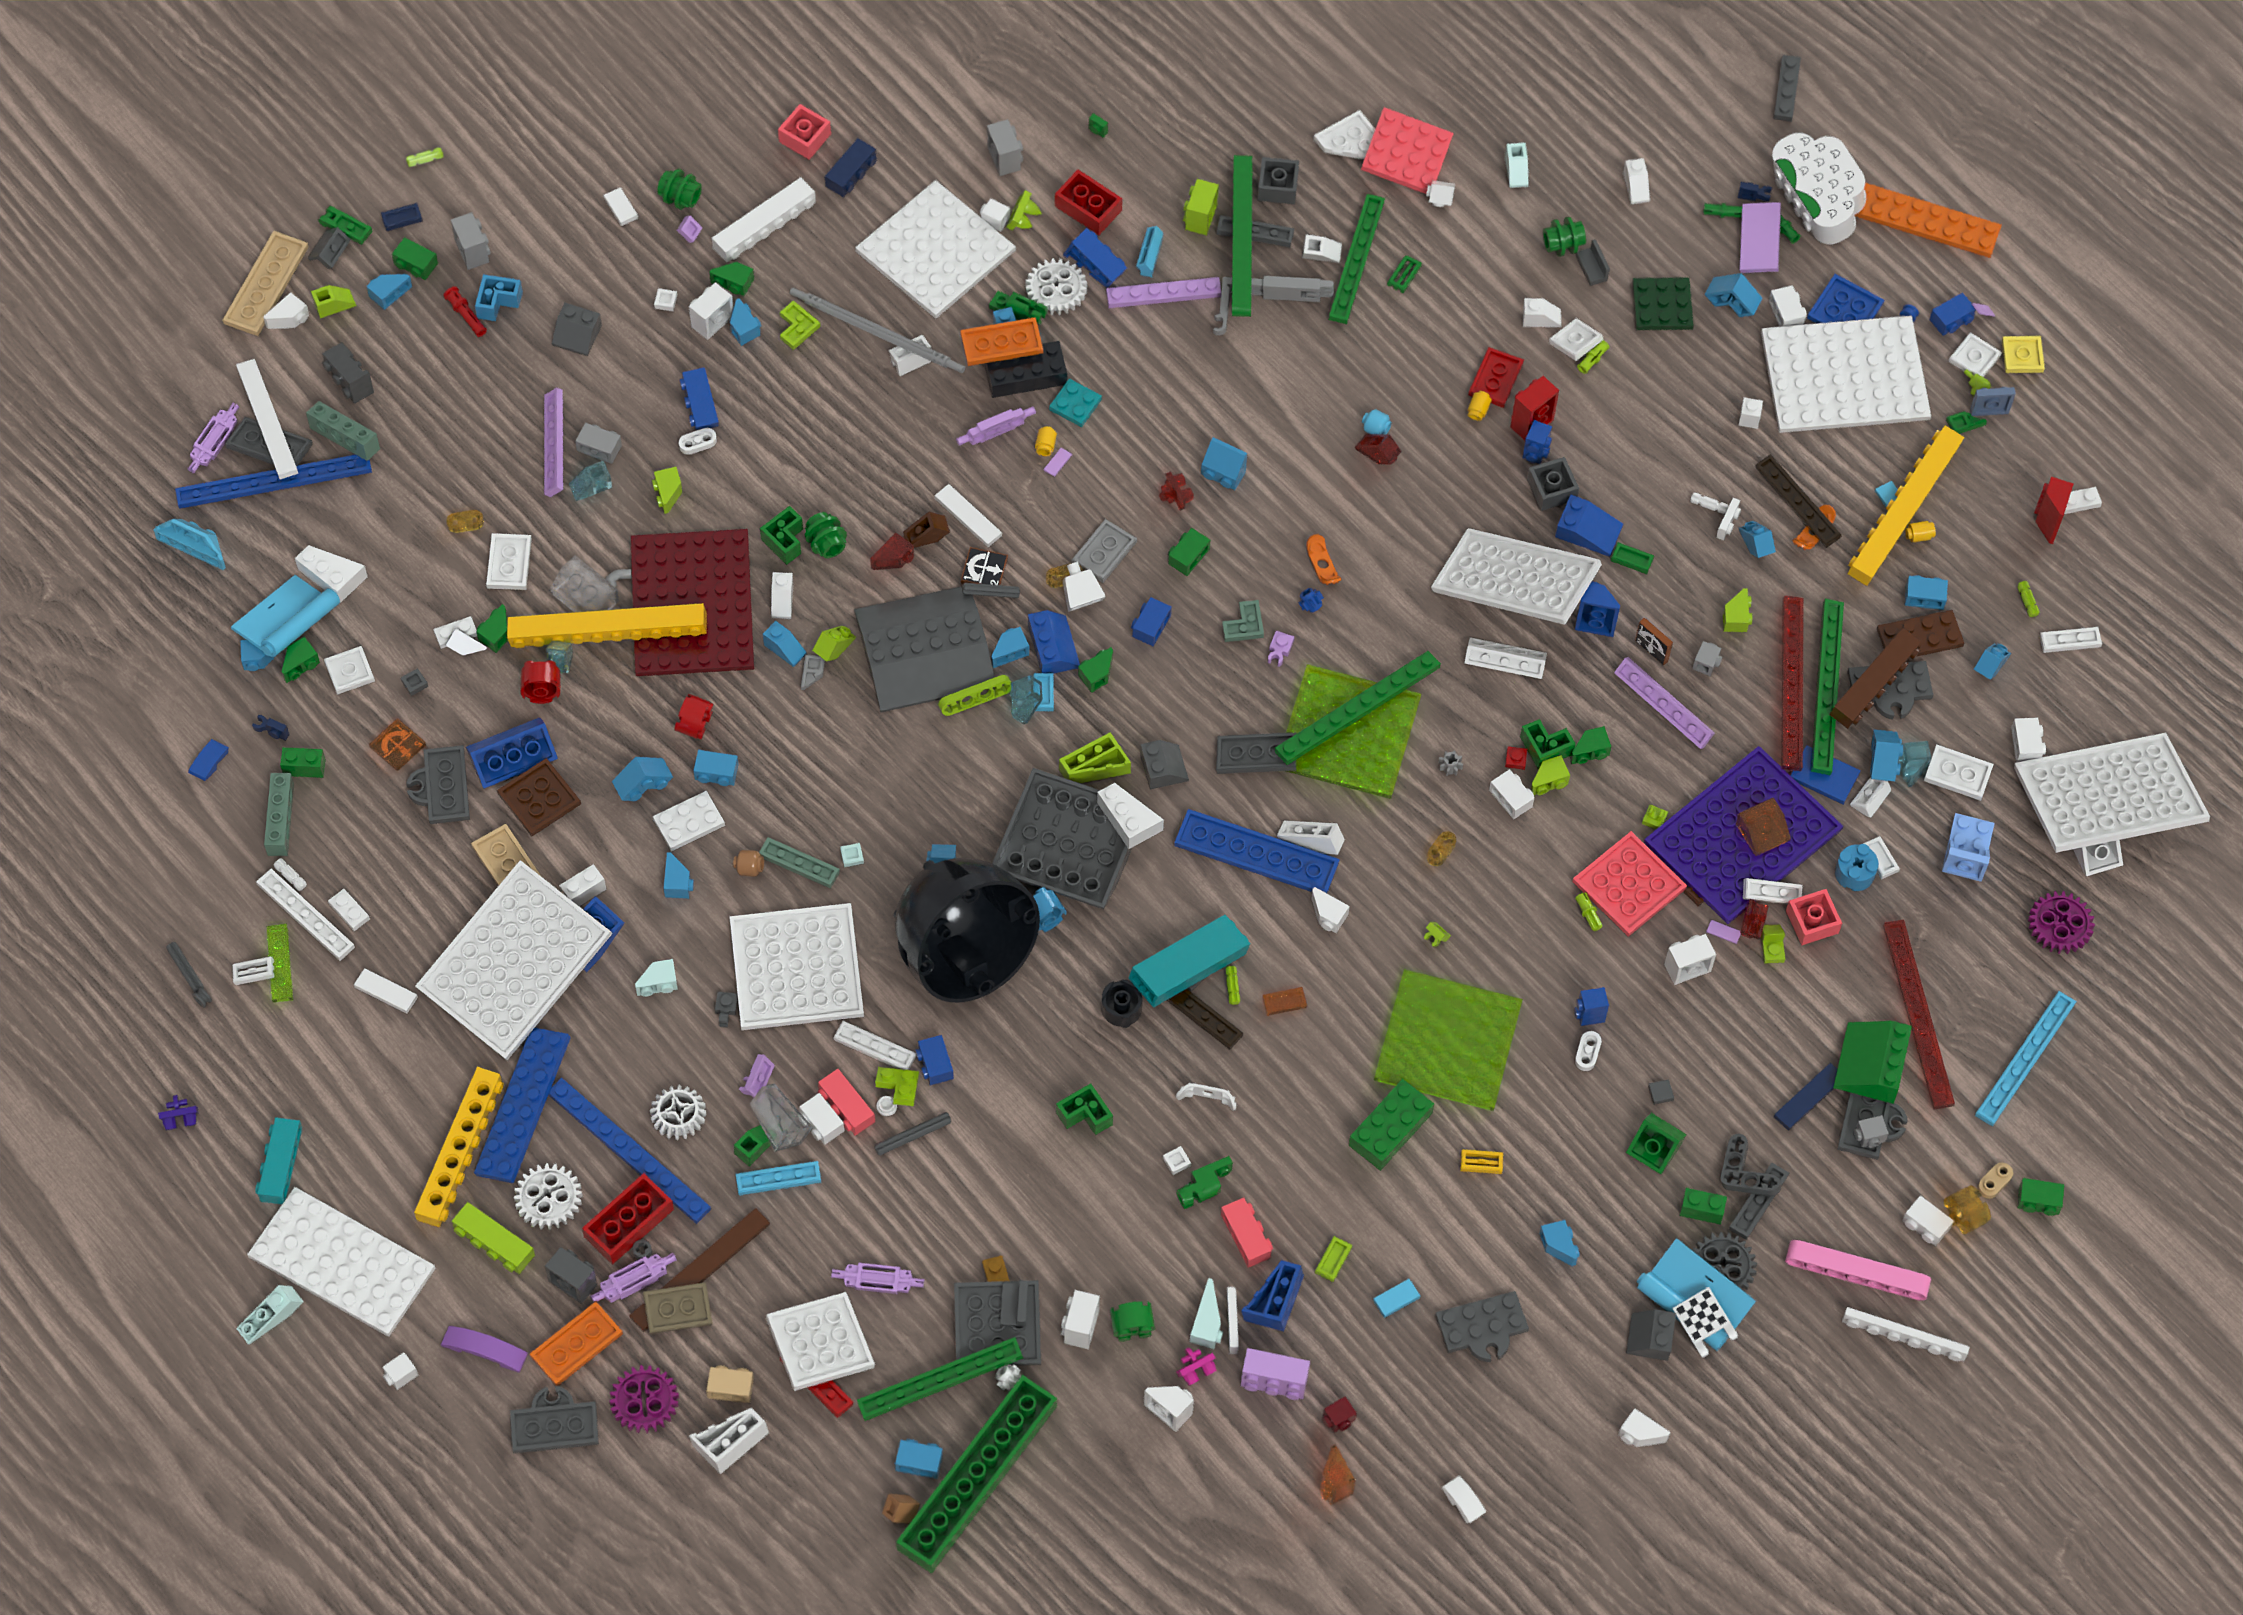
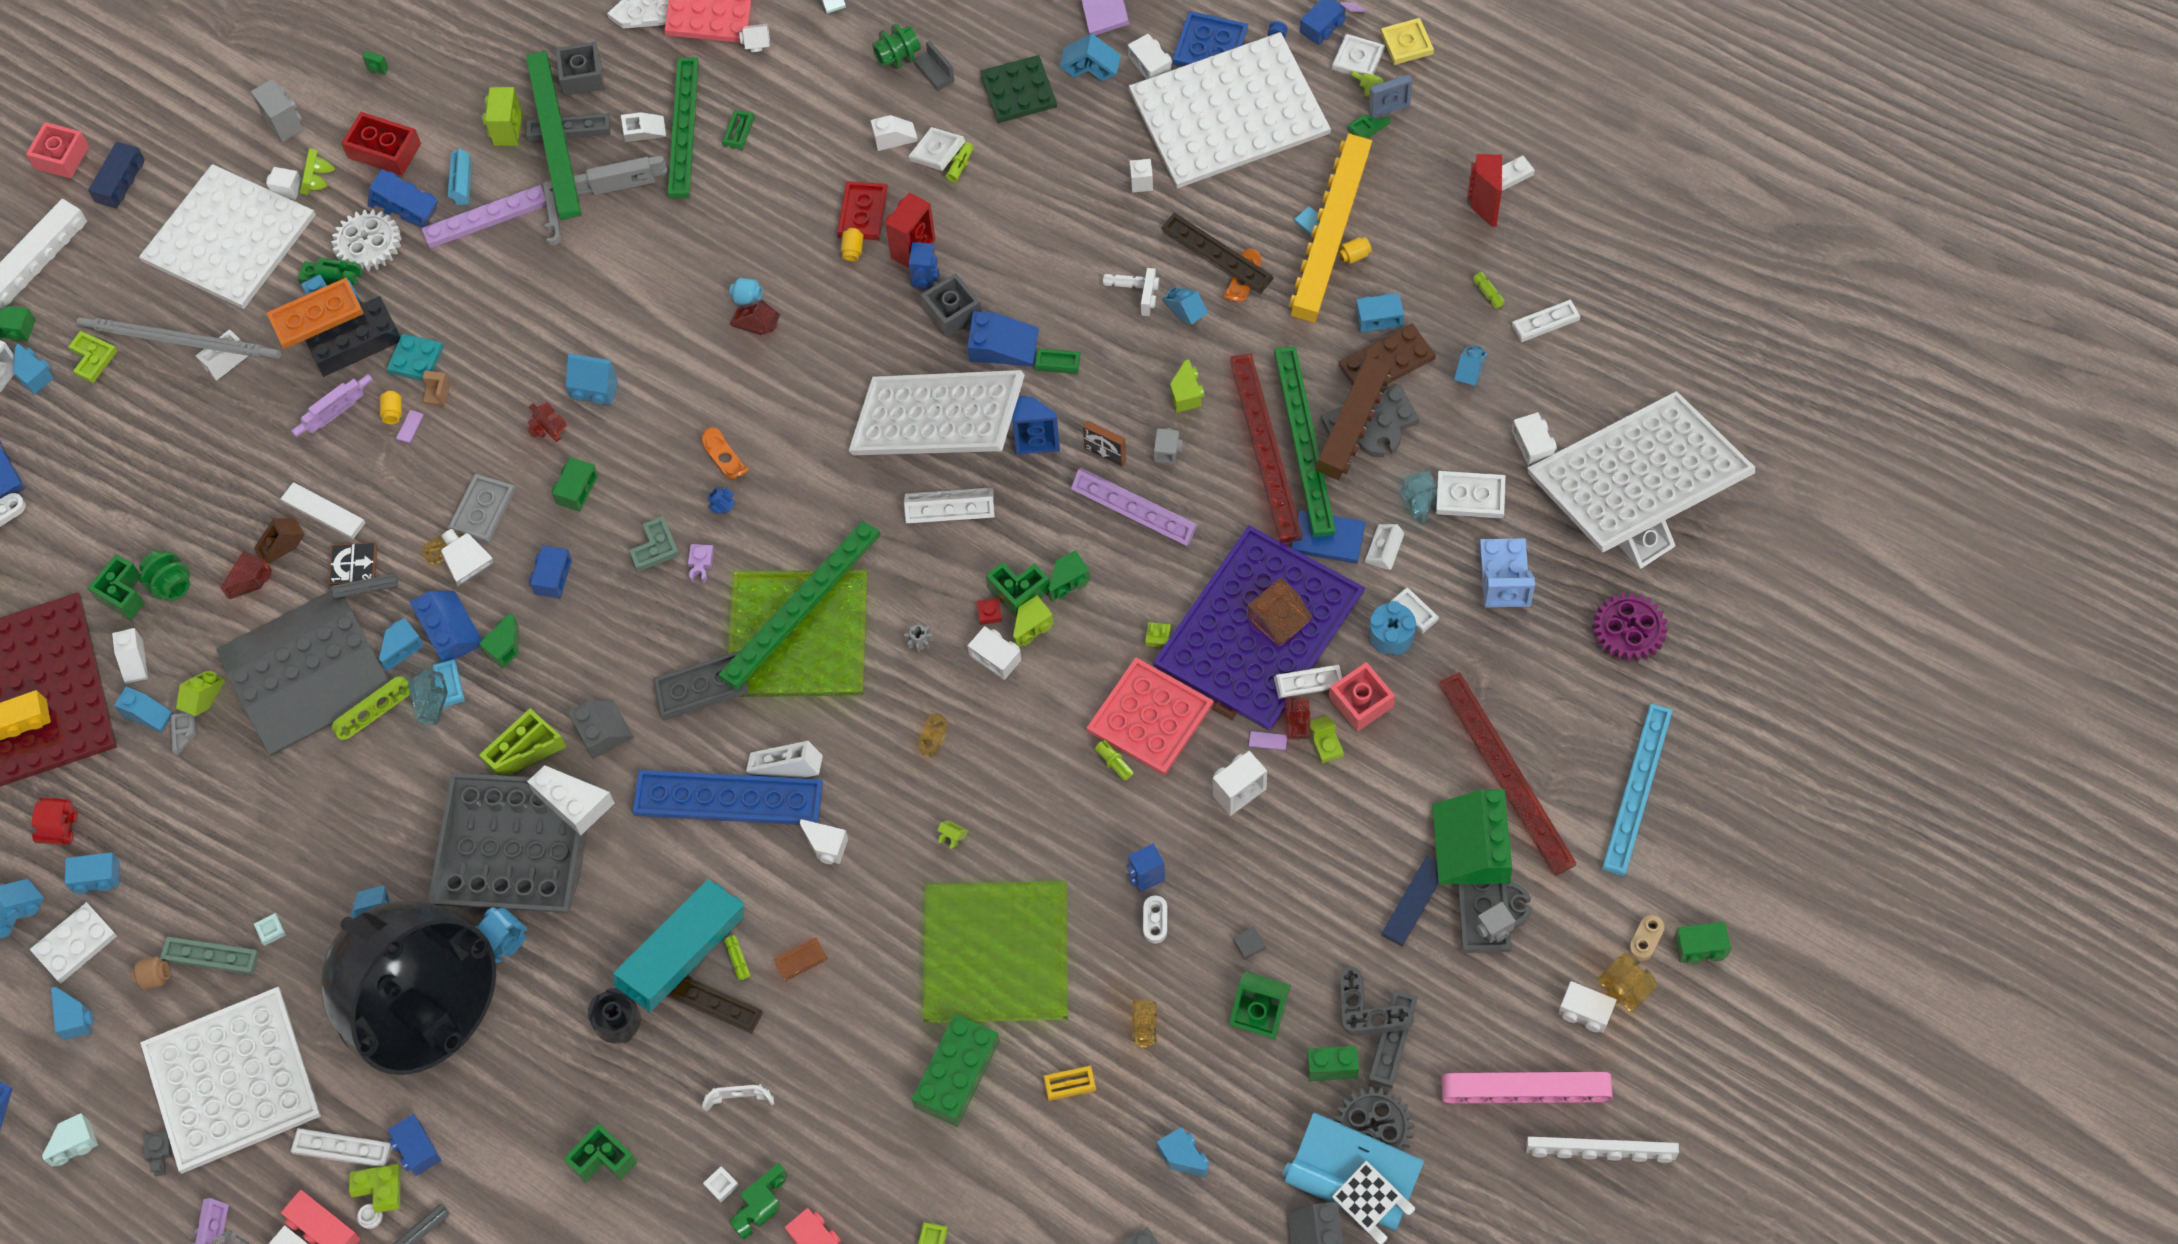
camera: 10 degrees left, 0 degrees up
(1088, 434) = (437, 388): none -> medium nougat panel
(1556, 1129) = (1144, 1022): none -> clear yellow brick
(1885, 750) = (1387, 495): dark azure brick -> none

